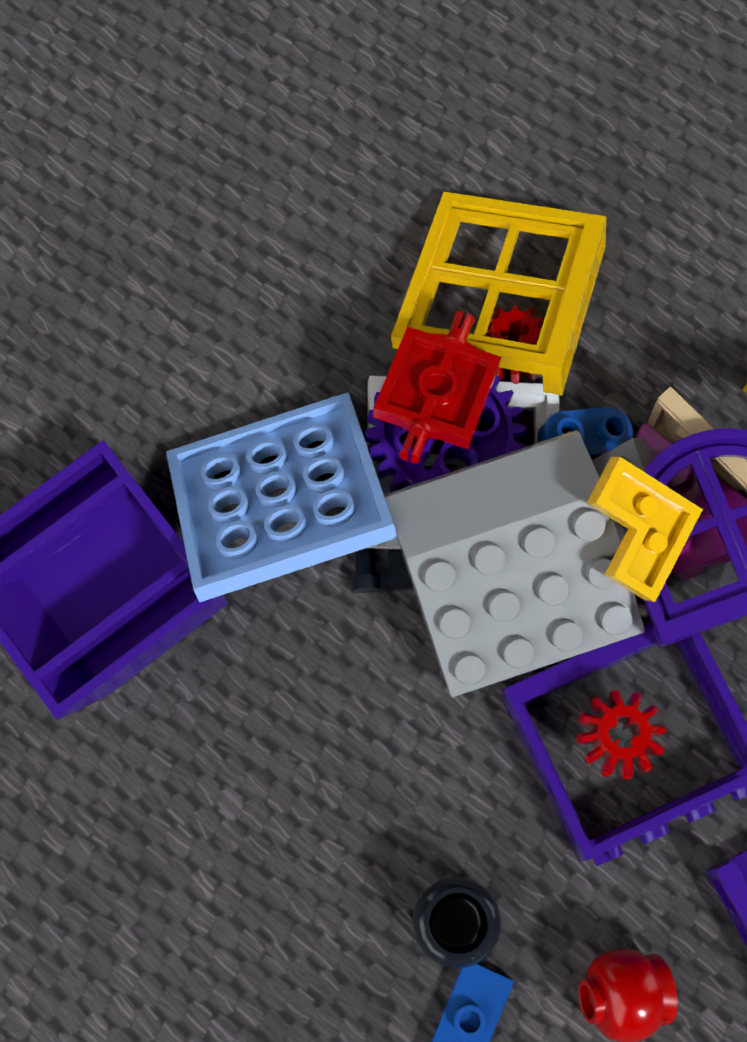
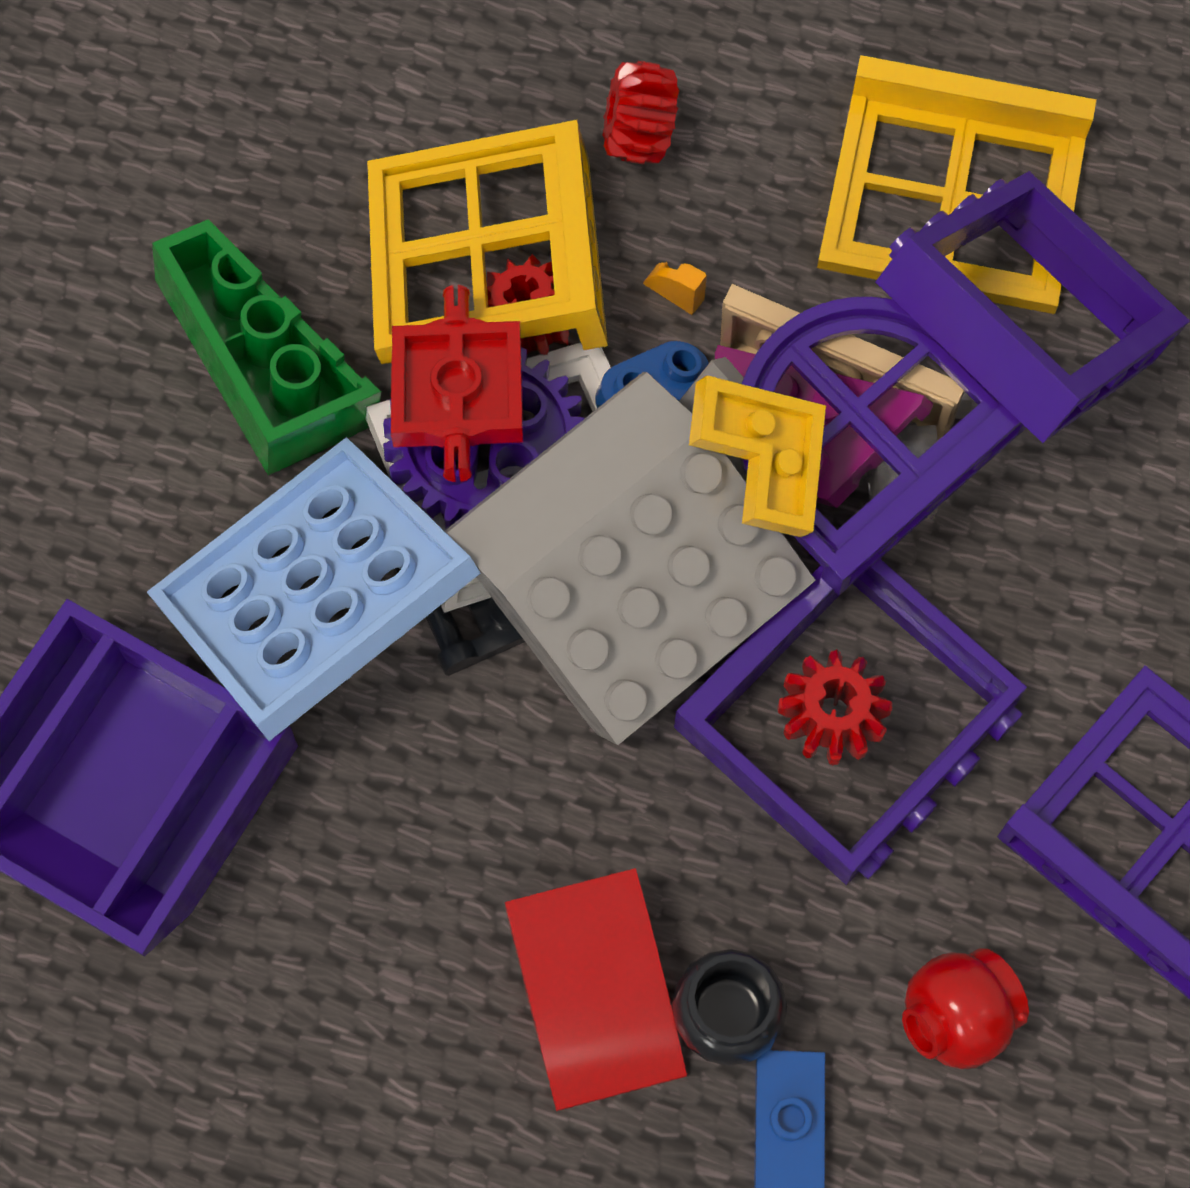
camera: 25 degrees left, 5 degrees down
(316, 336) = (260, 350): none -> green wedge
(366, 868) = (596, 989): none -> red slope
(636, 369) = (681, 286): none -> light orange tile
(656, 227) = (640, 112): none -> red gear

